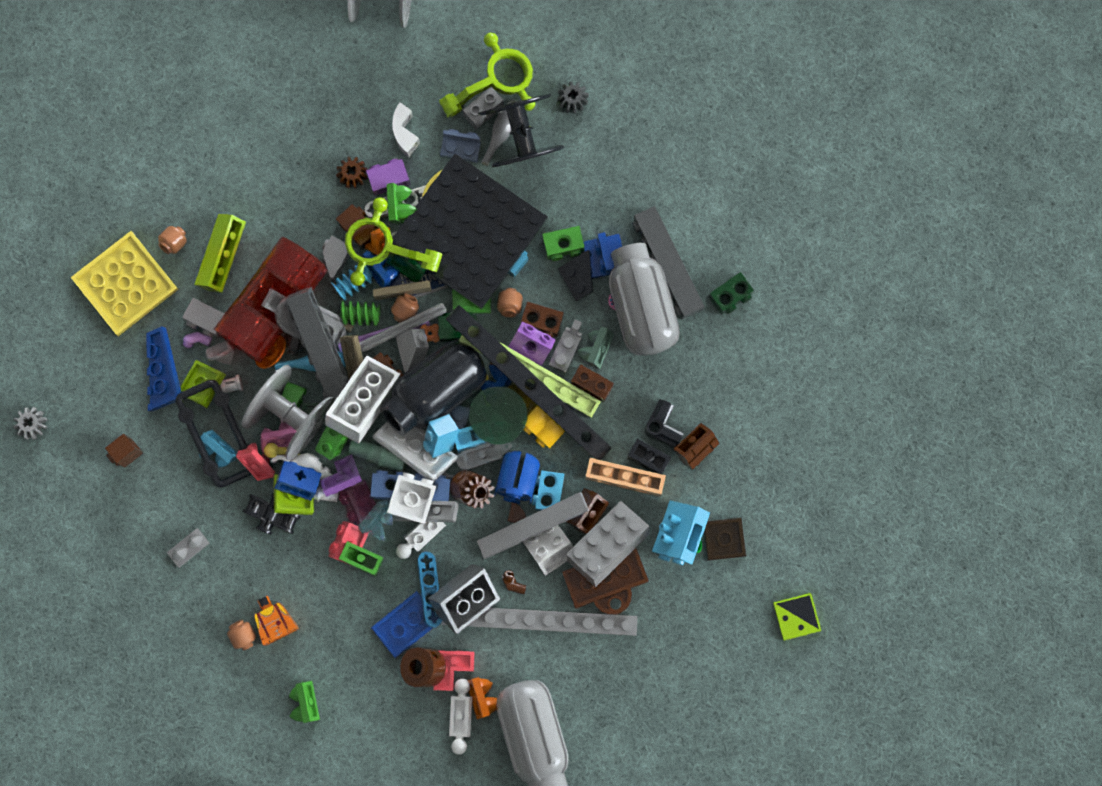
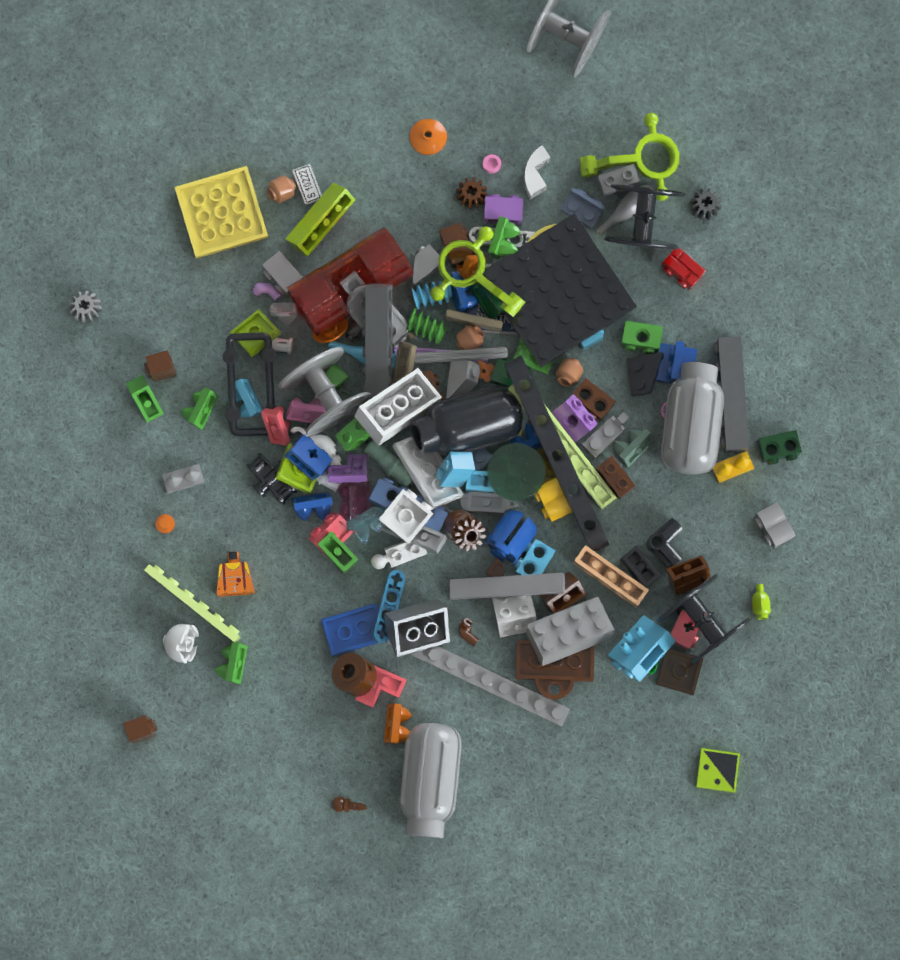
camera: 20 degrees right, 0 degrees up
(121, 487) = (144, 398): none -> bright green slope
(161, 370) = (223, 307): blue wing -> none
(180, 469) = (199, 414): none -> bright green tile
(187, 597) = (165, 523): none -> orange plate
(195, 225) = (307, 184): none -> white tile
(236, 659) = (186, 596): none -> yellowish green plate
(241, 635) = (200, 578): nougat head -> none
(246, 704) = (180, 642): none -> white cylinder
(272, 450) = (295, 420): light yellow bar -> none
(294, 144) = (428, 145): none -> orange dish
(312, 526) = (320, 502): none -> blue tile
(360, 138) = (491, 164): none -> bright pink tile
(460, 716) = (370, 733): white plate -> none
(576, 165) = (683, 268): none -> red brick
(696, 329) = (733, 467): none -> yellow tile
(711, 484) = (678, 632): none -> coral brick
(738, 489) = (696, 611): none -> black piece
(756, 368) = (774, 525): none -> light grey brick
(773, 445) = (761, 603): none -> lime plant

